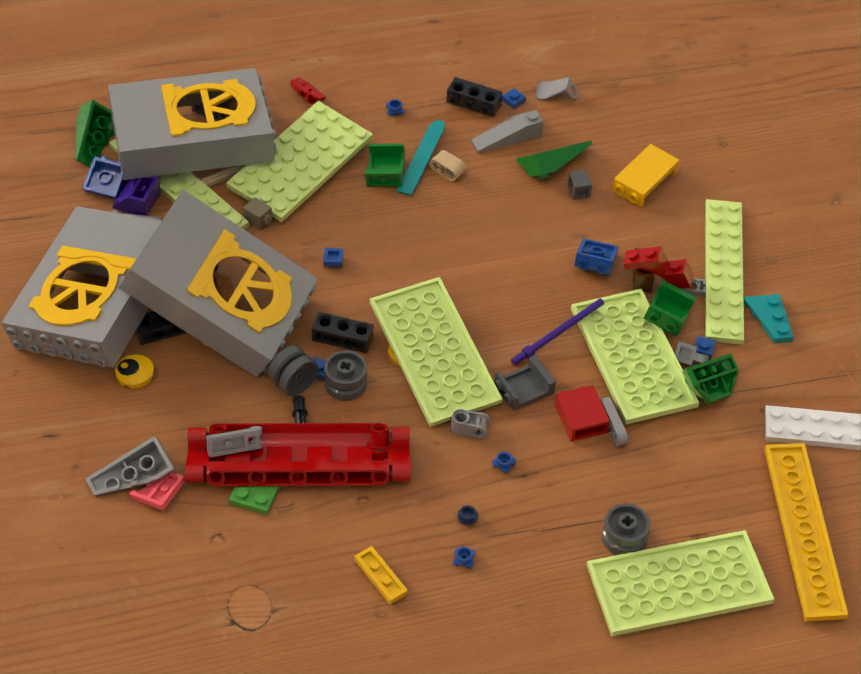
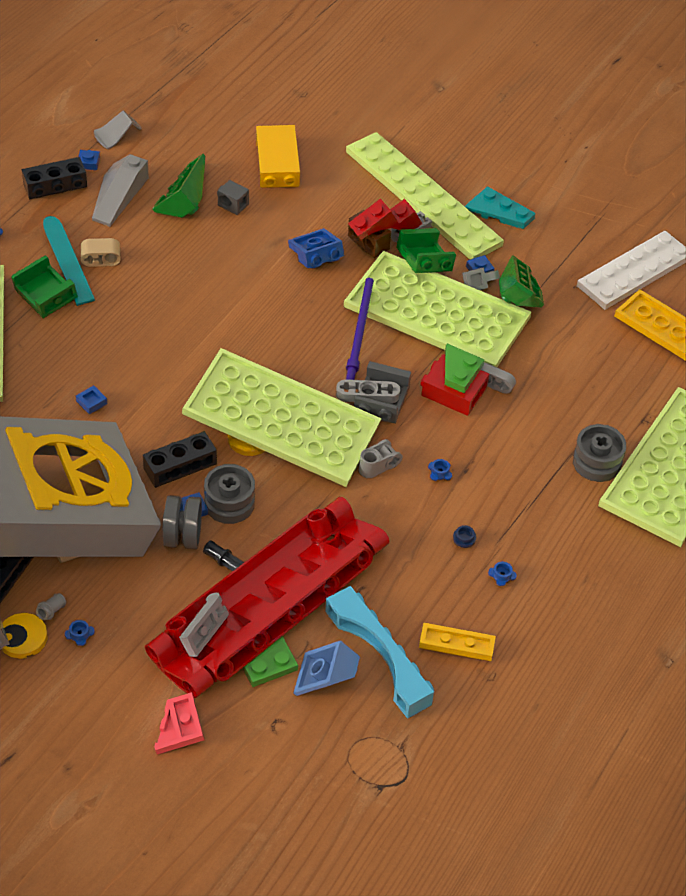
camera: 45 degrees left, 0 degrees up
(137, 467) = (139, 719): light grey wedge -> none
(166, 365) = (46, 609): none -> light grey pin
(169, 390) = (79, 626): none -> blue plate
(280, 525) = (326, 667): none -> medium blue slope
(314, 576) = (352, 615): none -> medium azure arch
(510, 367) = (360, 385): none -> light grey beam
(591, 402) = (460, 368): none -> bright green wing

